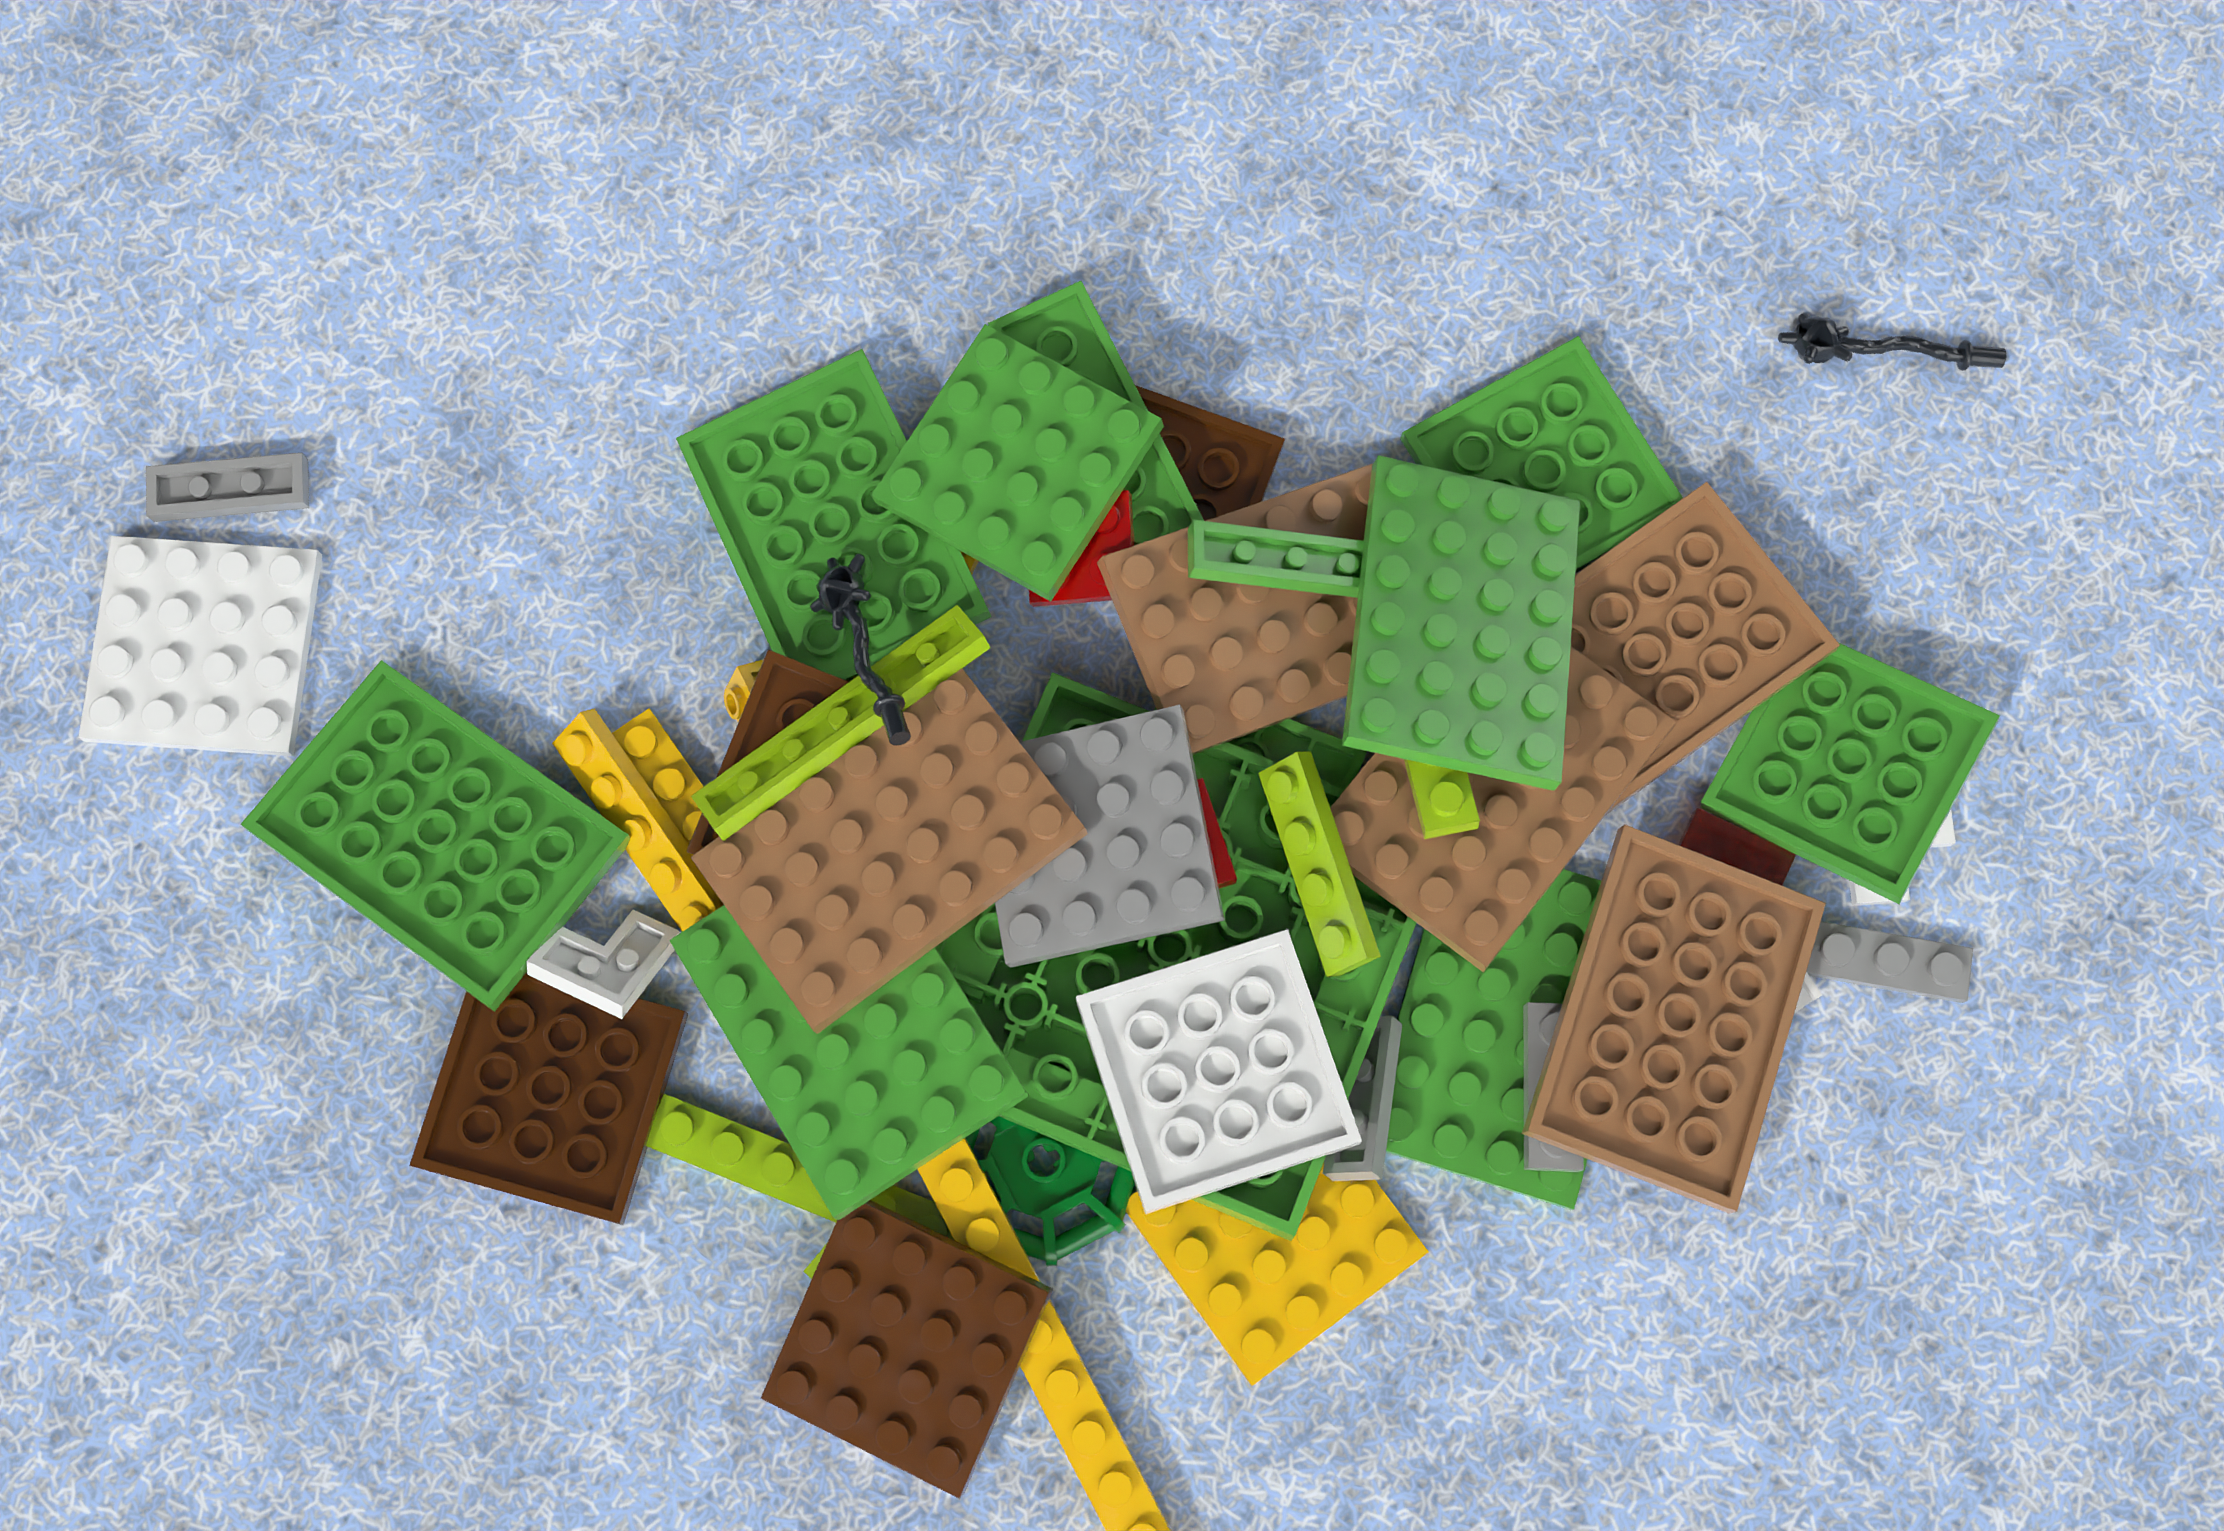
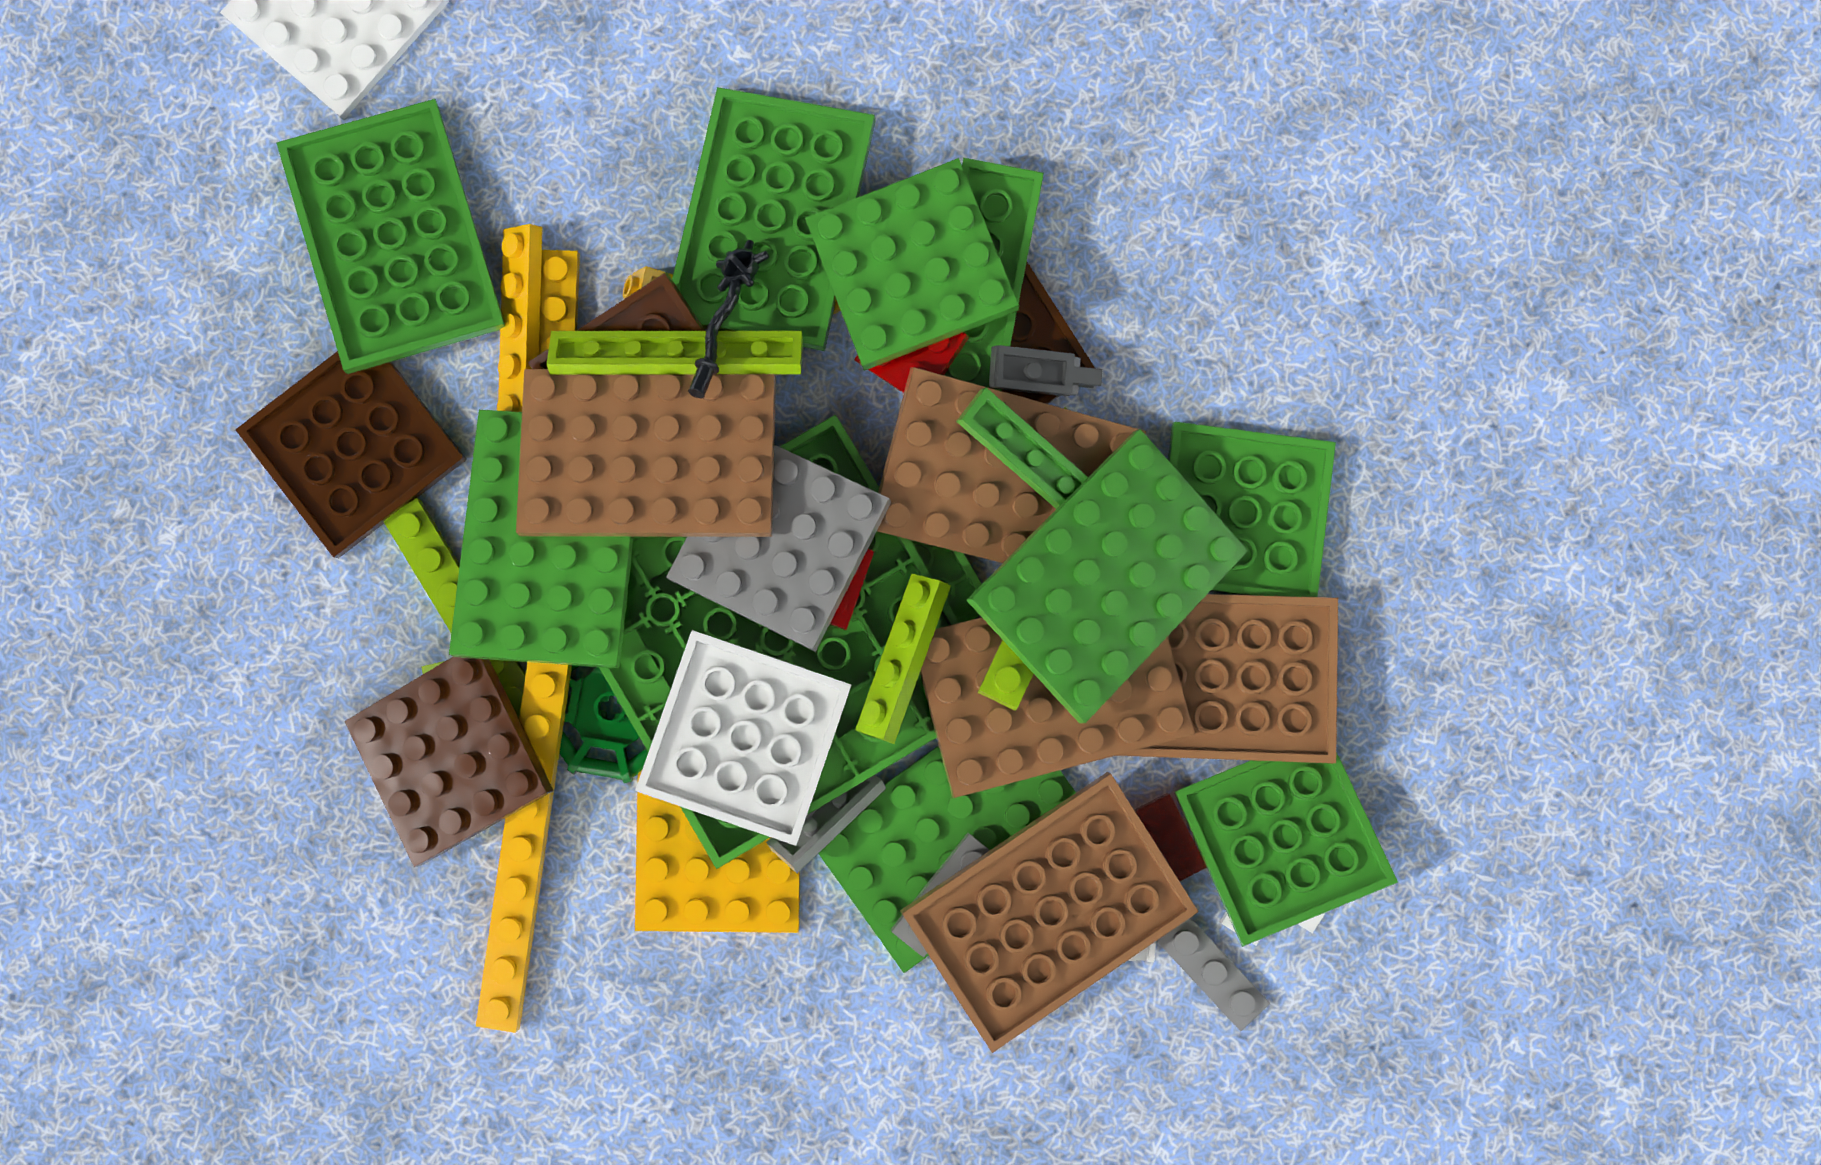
camera: 35 degrees right, 10 degrees up
(607, 974) = (432, 402): white plate -> none
(1231, 474) = (1039, 371): none -> dark grey hinge
(1820, 341) = (1490, 560): black piece -> none

